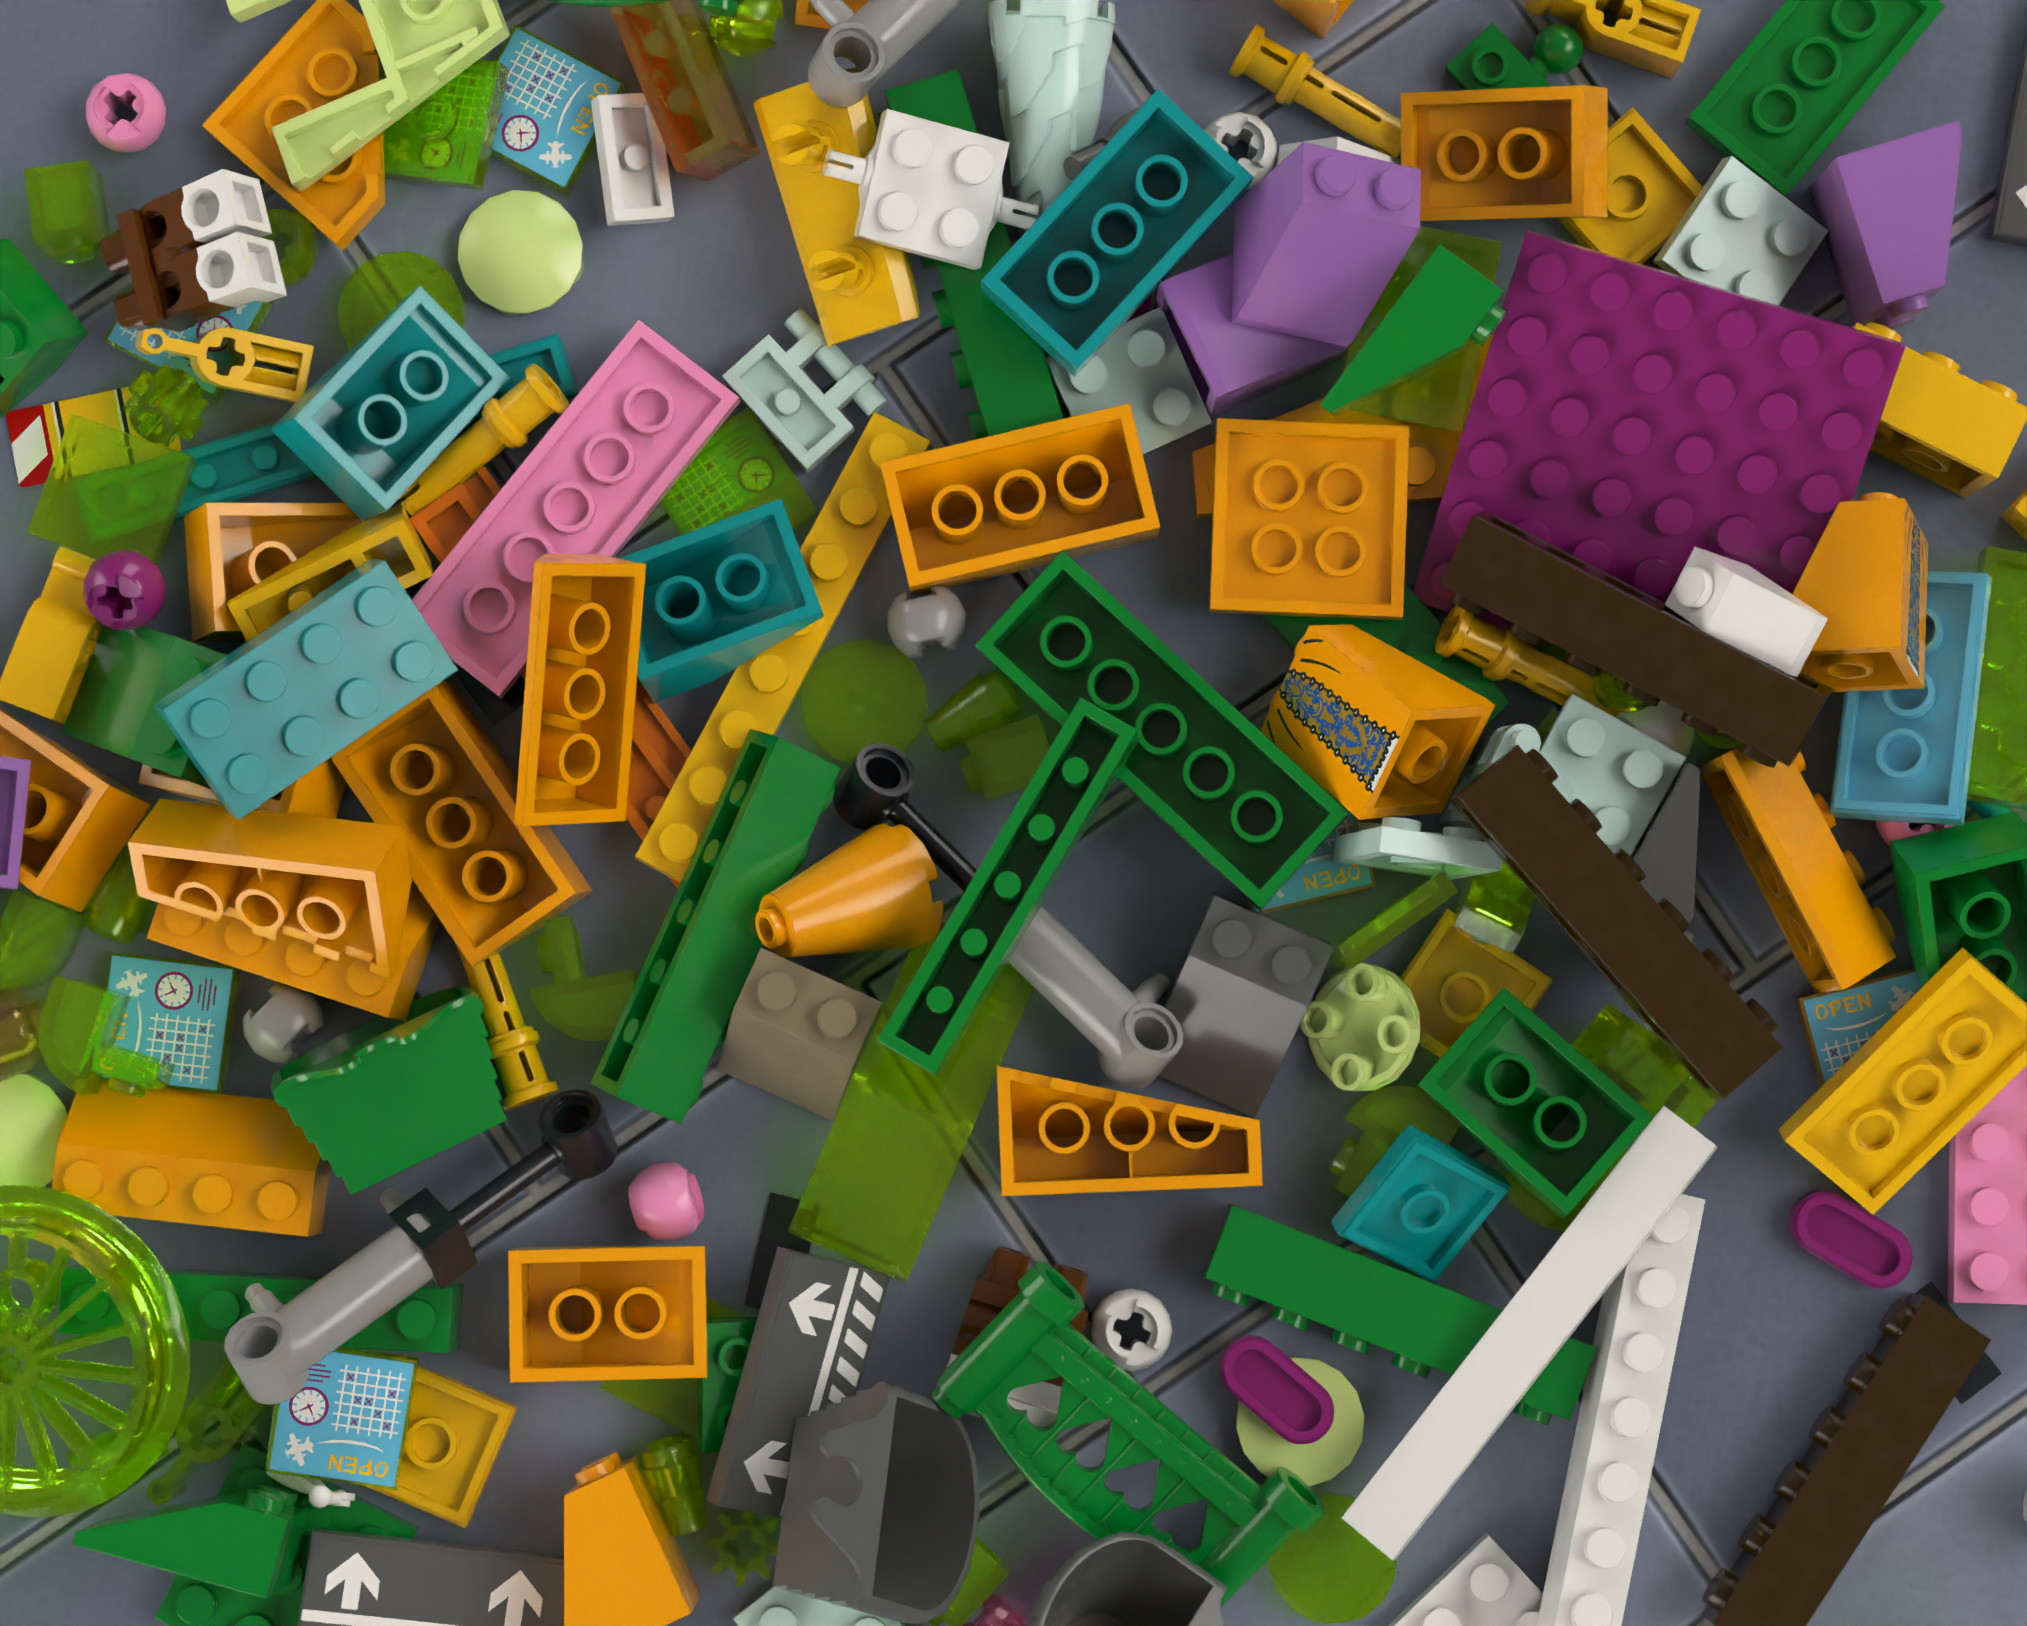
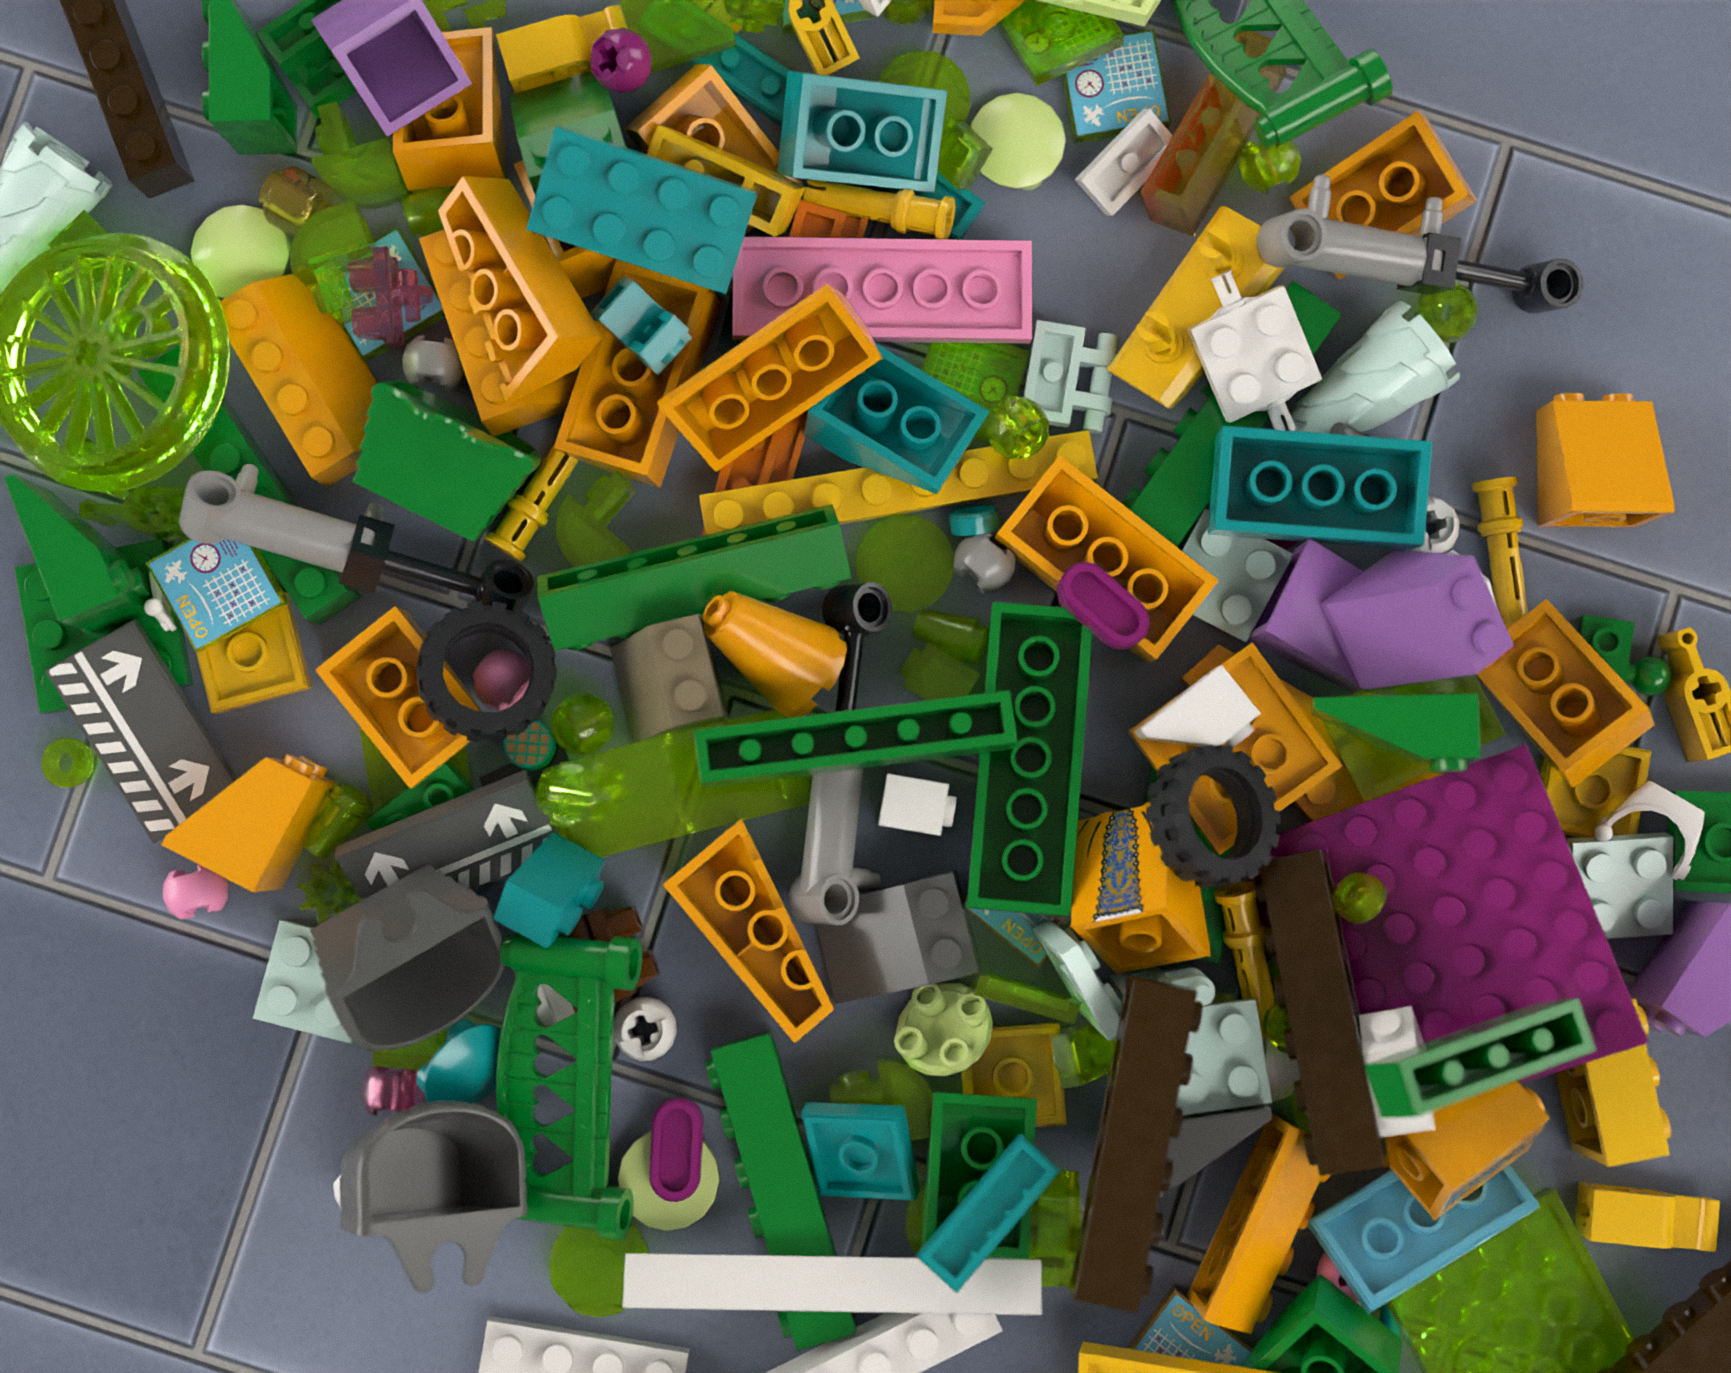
camera: 50 degrees right, 0 degrees up
(153, 1006) = (386, 319): none -> clear pink hips
(420, 779) = (641, 324): none -> teal brick
(492, 319) = (961, 154): none -> clear neon green plate
(619, 1149) = (490, 620): none -> black tyre
(751, 1226) = (531, 748): none -> tile
(773, 1155) = (582, 723): none -> clear neon green piece
(818, 482) = (1017, 427): none -> clear neon green piece
(836, 1223) = (566, 794): none -> clear neon green gear
(875, 598) = (974, 520): none -> teal tile
(921, 1312) = (551, 890): none -> teal piece
(1026, 1538) = (463, 1065): none -> teal dish
(1065, 538) = (1103, 605): none -> magenta tile
(1119, 881) = (916, 805): none -> white brick
(1252, 523) = (1204, 714): none -> white slope
(1342, 642) = (1174, 828): none -> black tyre
(1551, 512) = (1359, 897): none -> clear neon green plate
(1577, 1120) = (988, 1213): none -> teal plate
(1683, 142) = (1656, 798): none -> white helmet
(1791, 522) = (1479, 1058): none -> green brick

